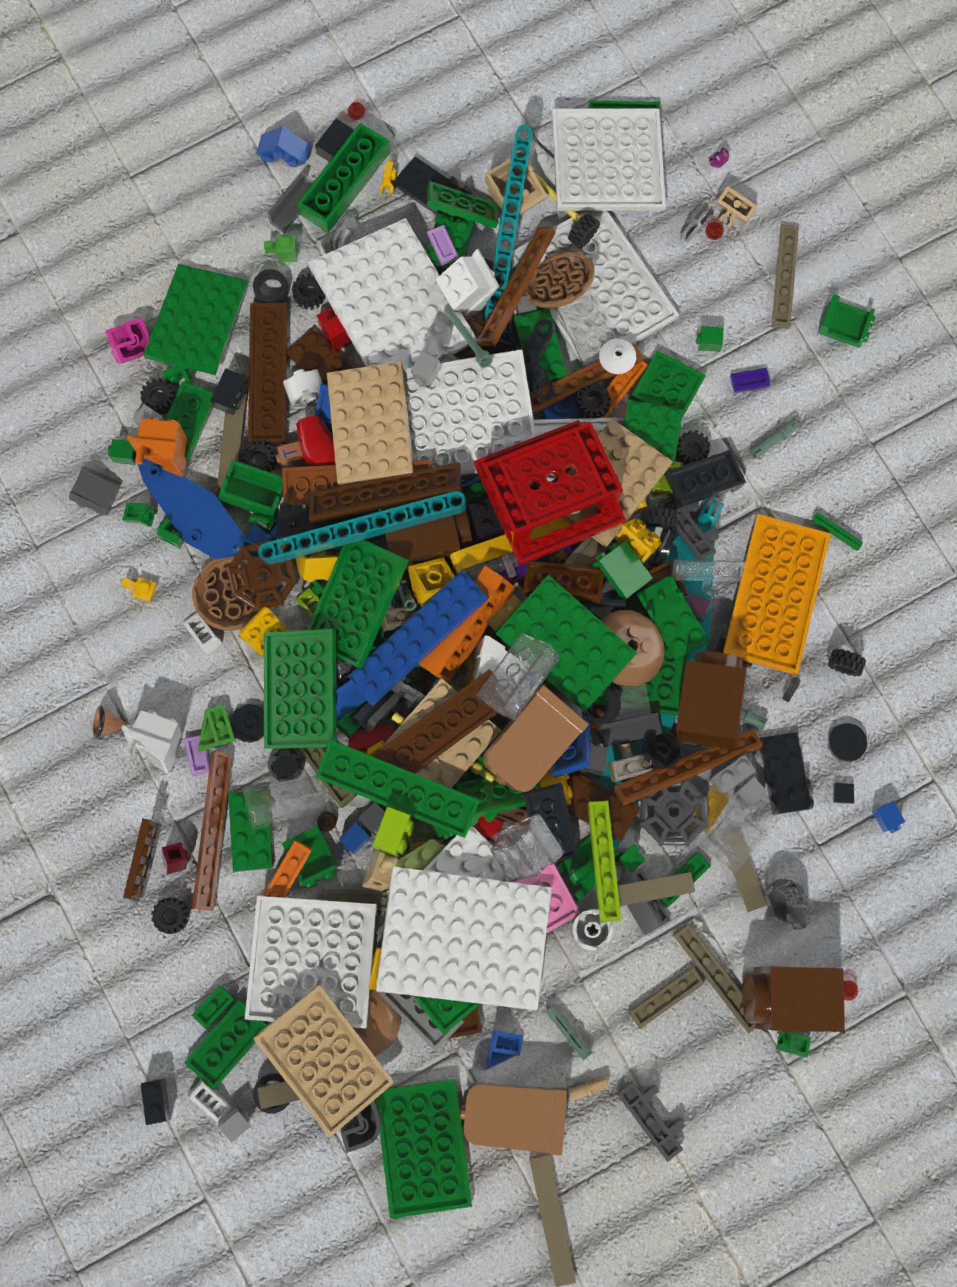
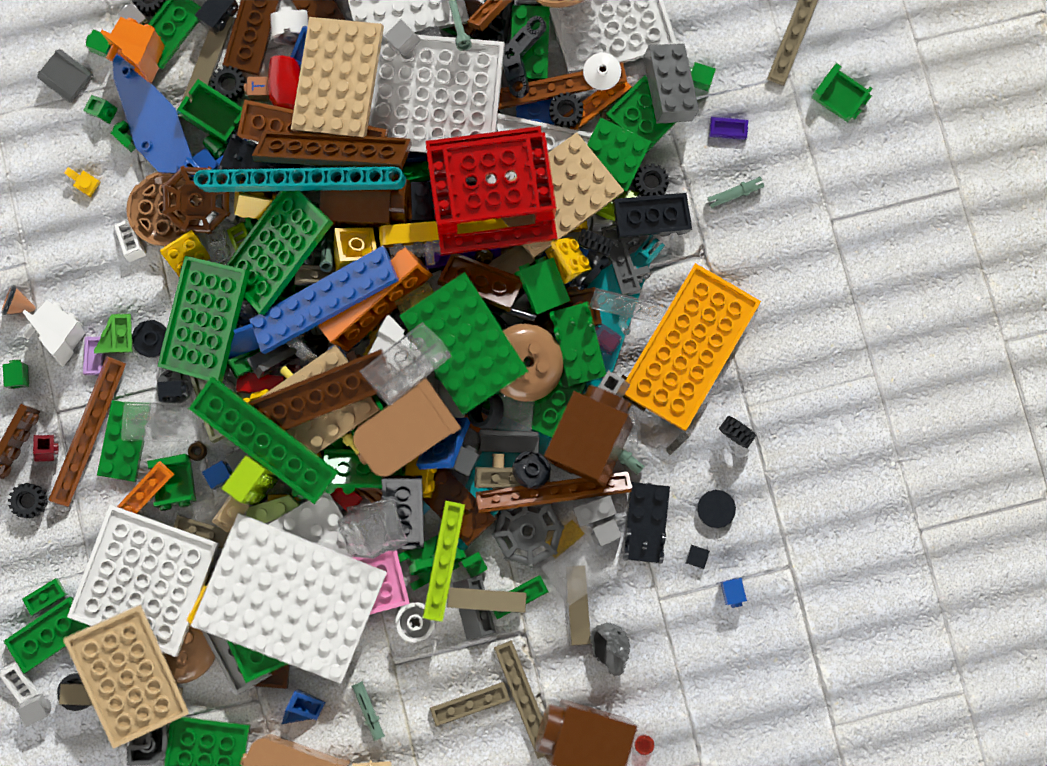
camera: 20 degrees right, 5 degrees up
(124, 793) = (15, 374): none -> green brick
(685, 351) = (670, 83): none -> dark grey brick
(719, 644) = (614, 384): none -> light grey brick
(837, 531) = (769, 300): green axle -> none

